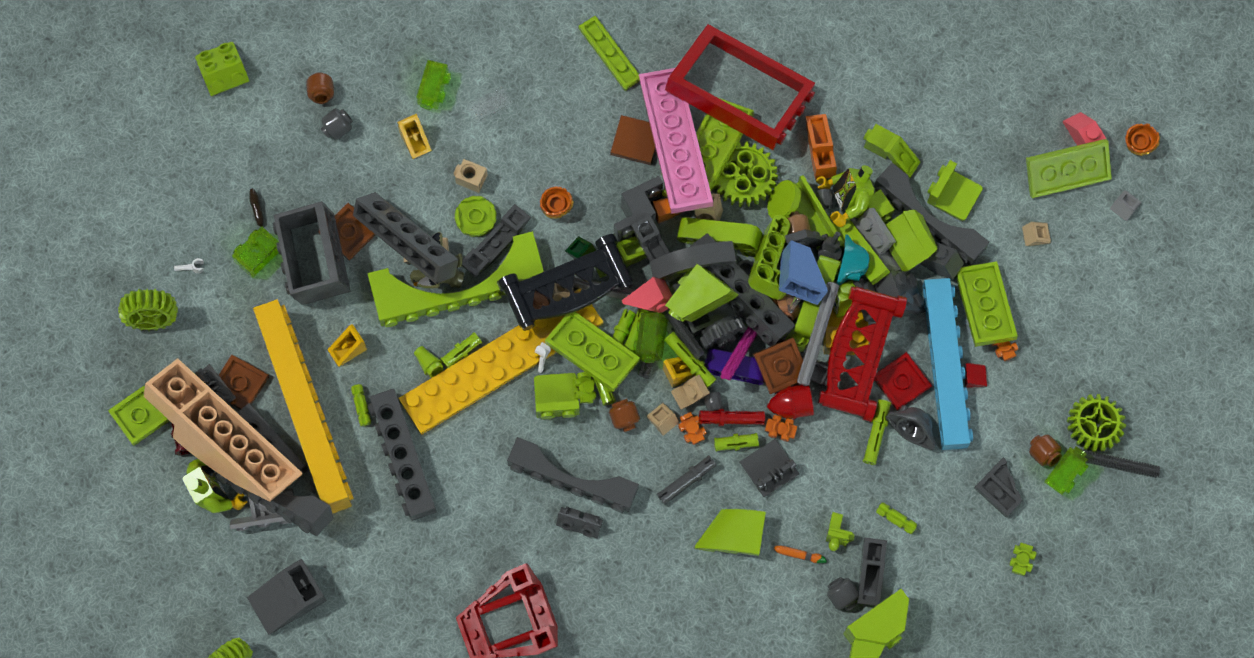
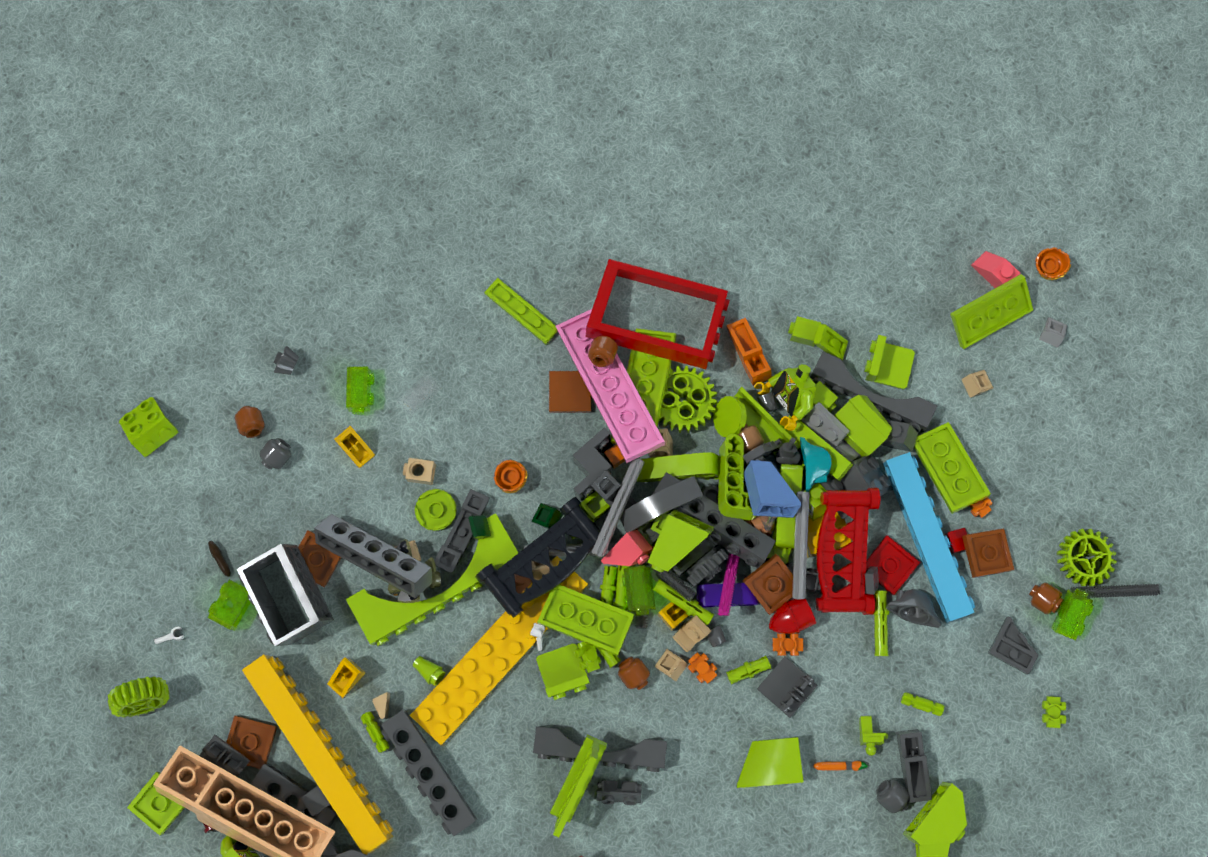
camera: 10 degrees left, 5 degrees up
(290, 447) = (315, 801): none -> dark grey tile
(369, 41) = (285, 361): none -> dark grey piece
(375, 380) = (382, 705): none -> tan slope
(461, 350) = (457, 650): lime pin -> none
(514, 238) = (479, 527): none -> dark green slope
(543, 496) = (577, 782): none -> lime fence
(651, 253) = (617, 507): none -> light grey axle
(677, 106) = (602, 351): none -> dark orange head
(694, 474) = (711, 721): dark grey pin -> none
(731, 417) = (731, 649): red pin -> none
(879, 388) = (872, 580): none -> dark grey tile
(1001, 394) = (988, 553): none -> dark orange tile

